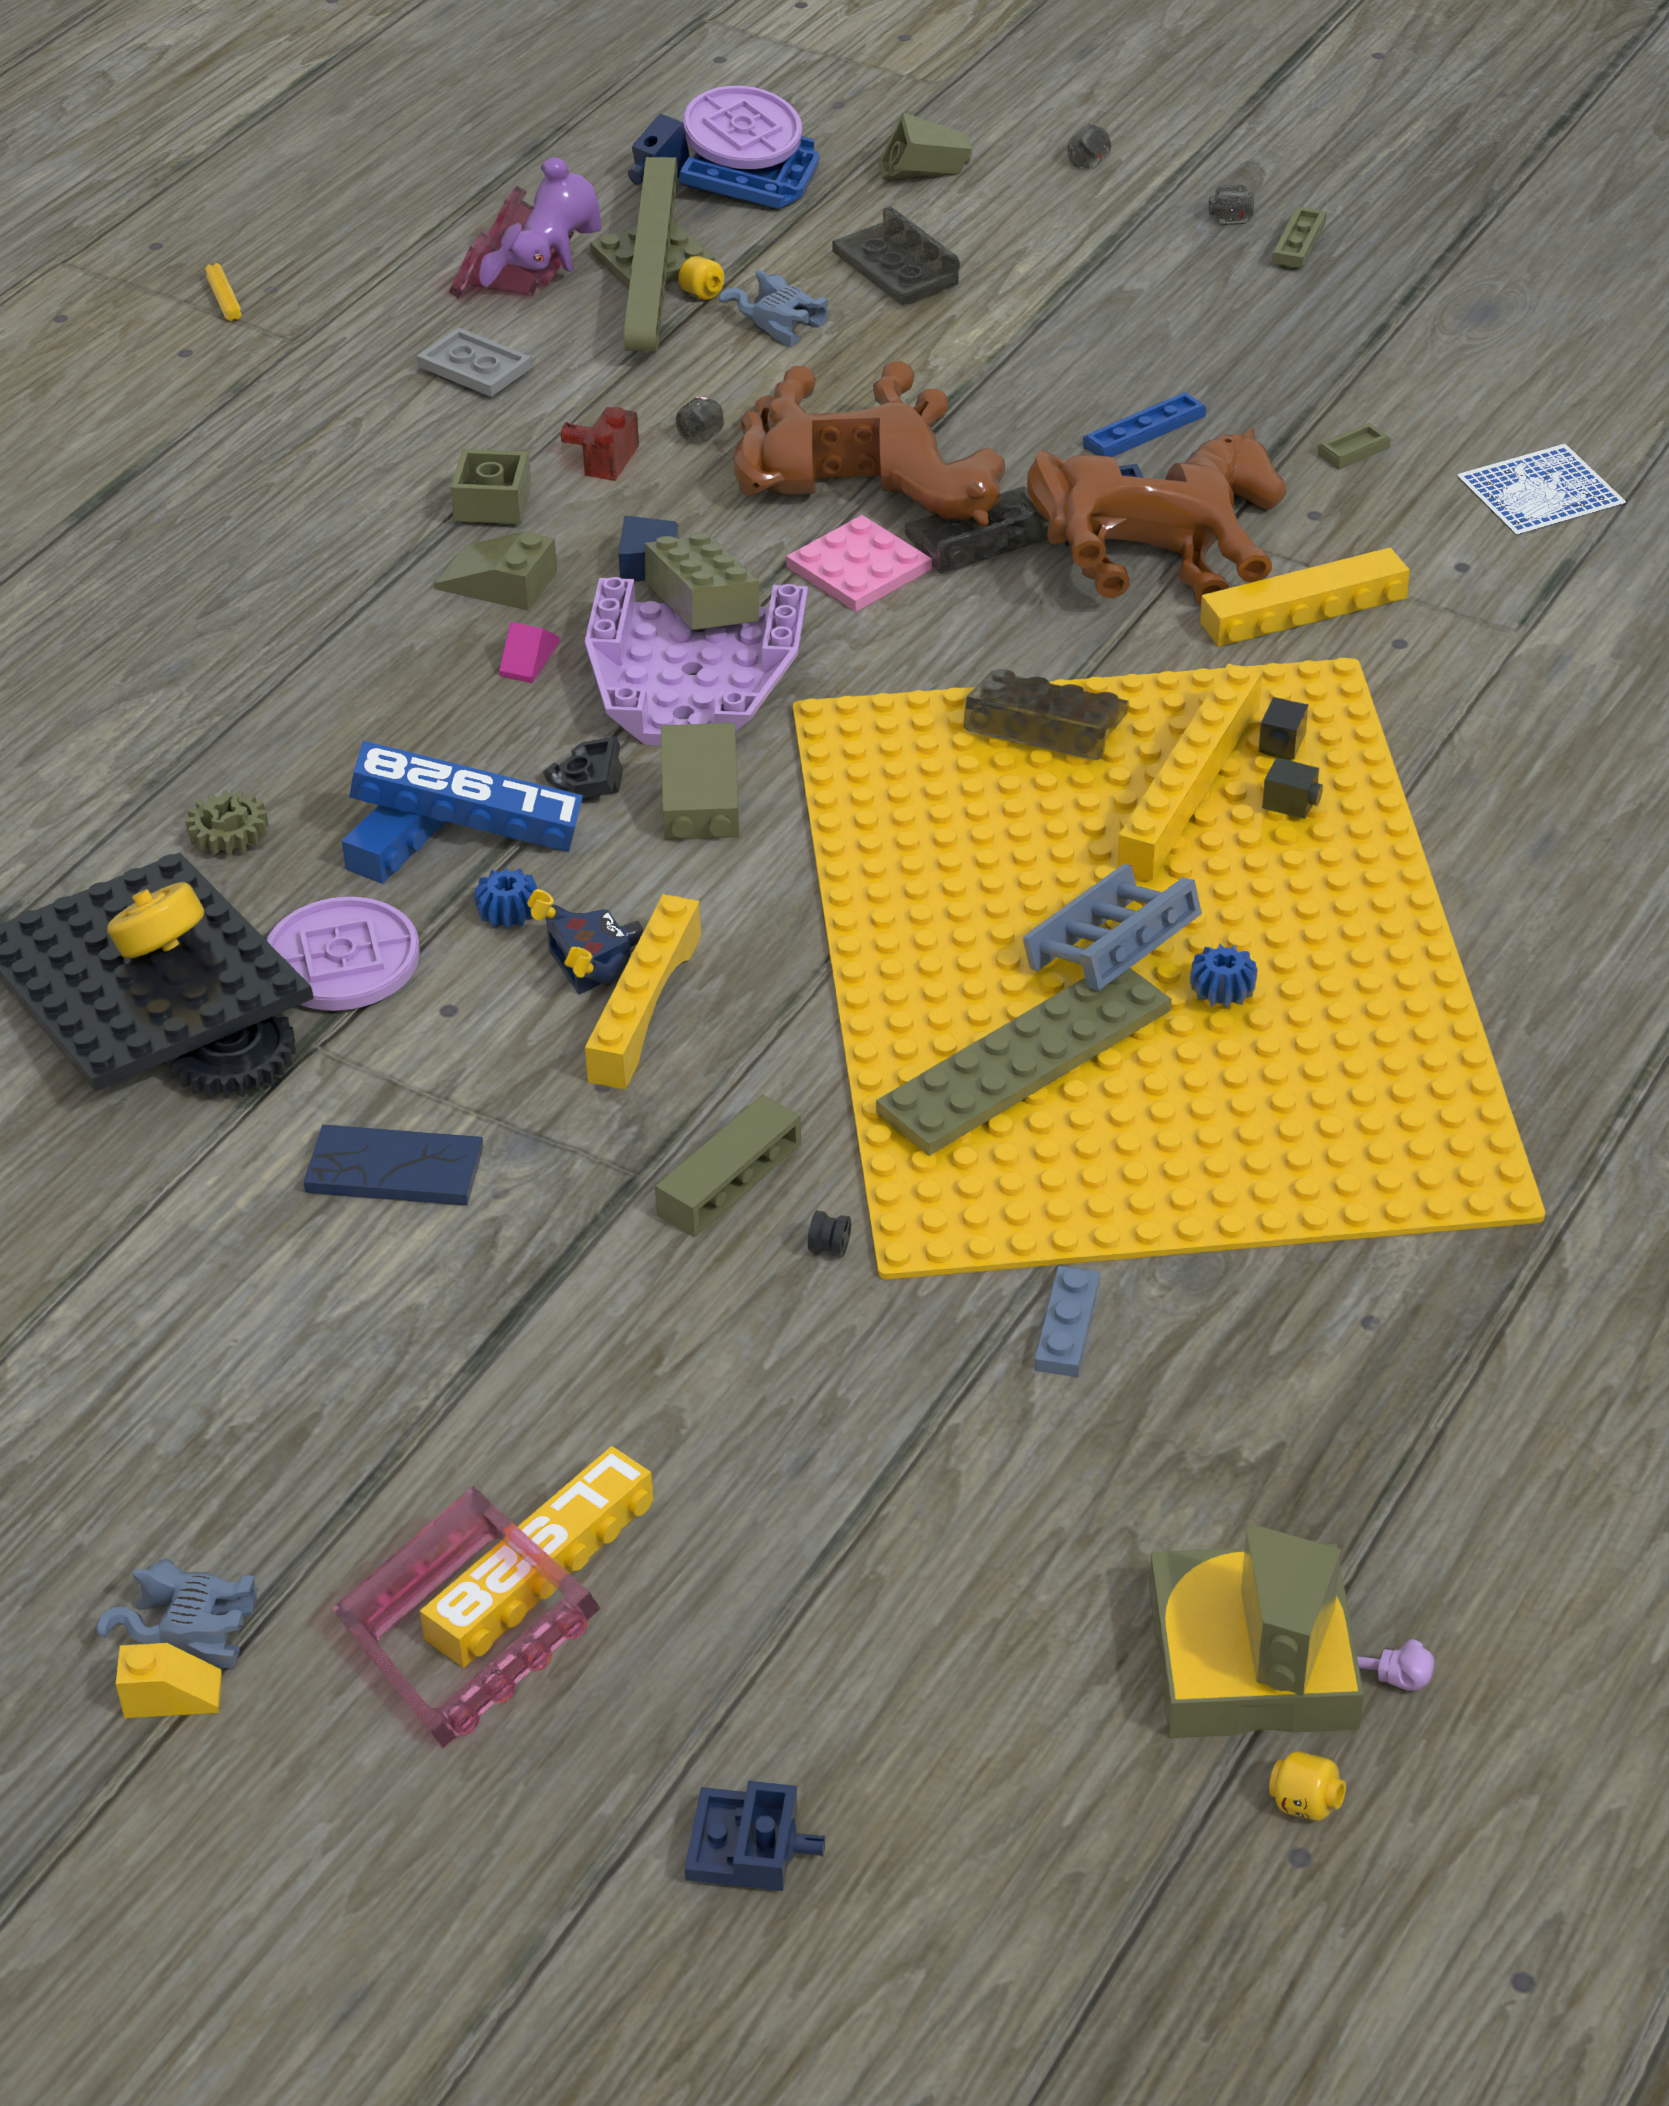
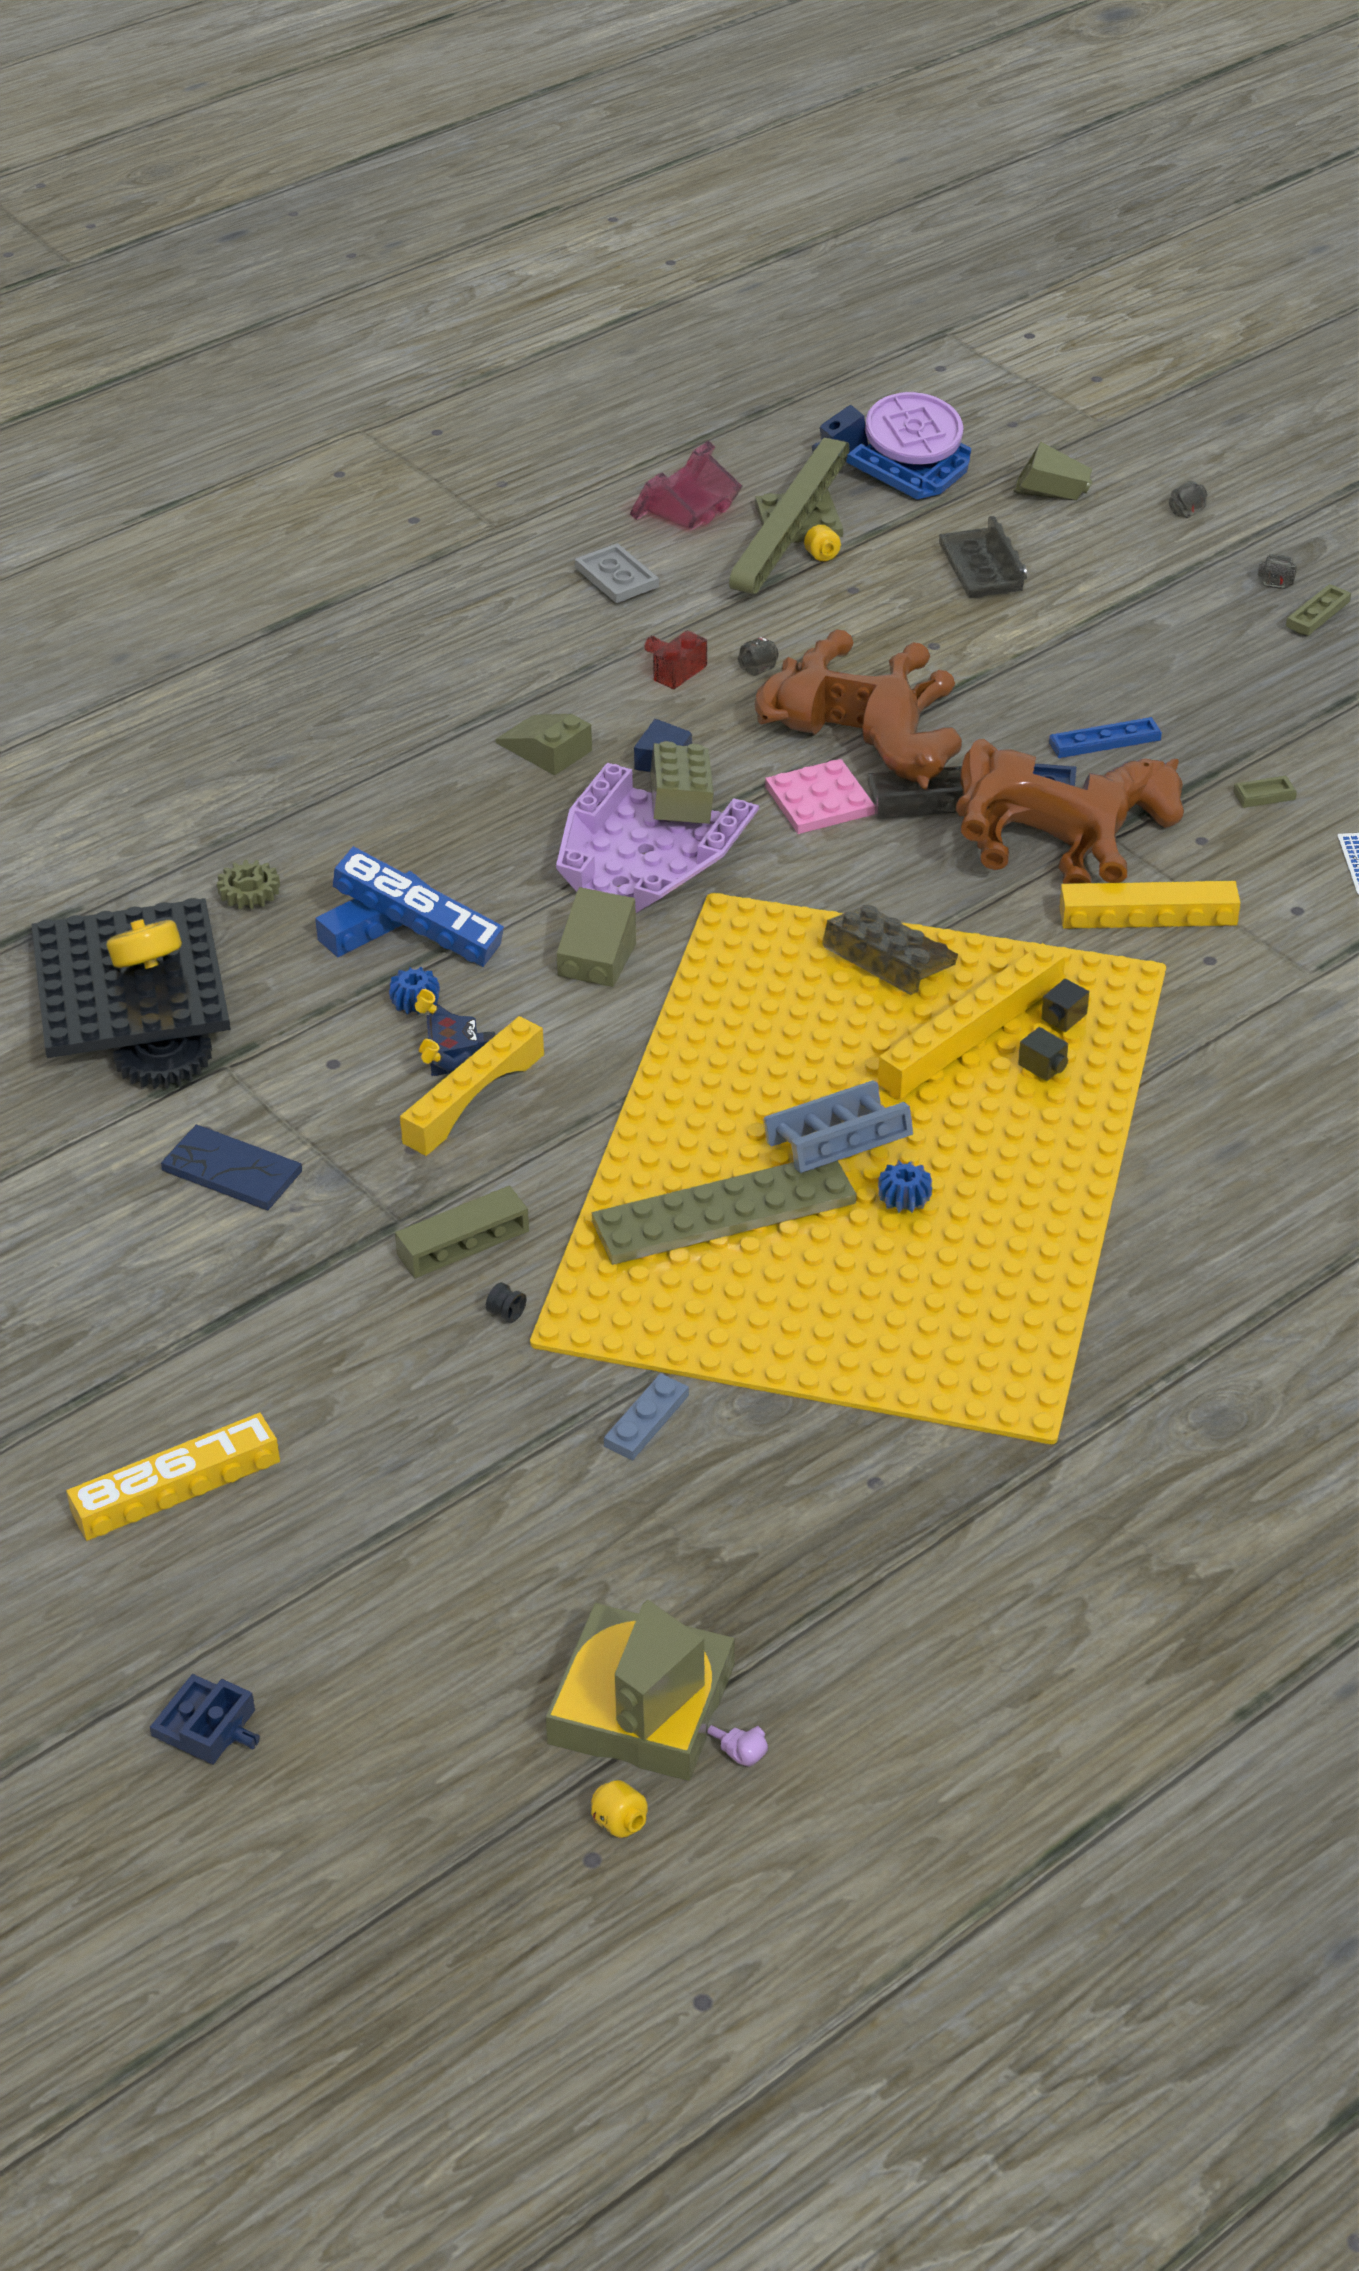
camera: 20 degrees right, 0 degrees up
(223, 292) = (464, 478): yellow axle -> none
(348, 950) = (279, 1001): lavender plate -> none
(421, 1569) = (75, 1465): clear pink windscreen -> none
(491, 486) = (571, 673): olive brick -> none
(526, 652) = (532, 807): dark pink slope -> none
(560, 206) = (730, 464): medium lavender animal -> none
(590, 770) = (529, 910): black plate -> none
(779, 307) = (869, 579): sand blue animal -> none

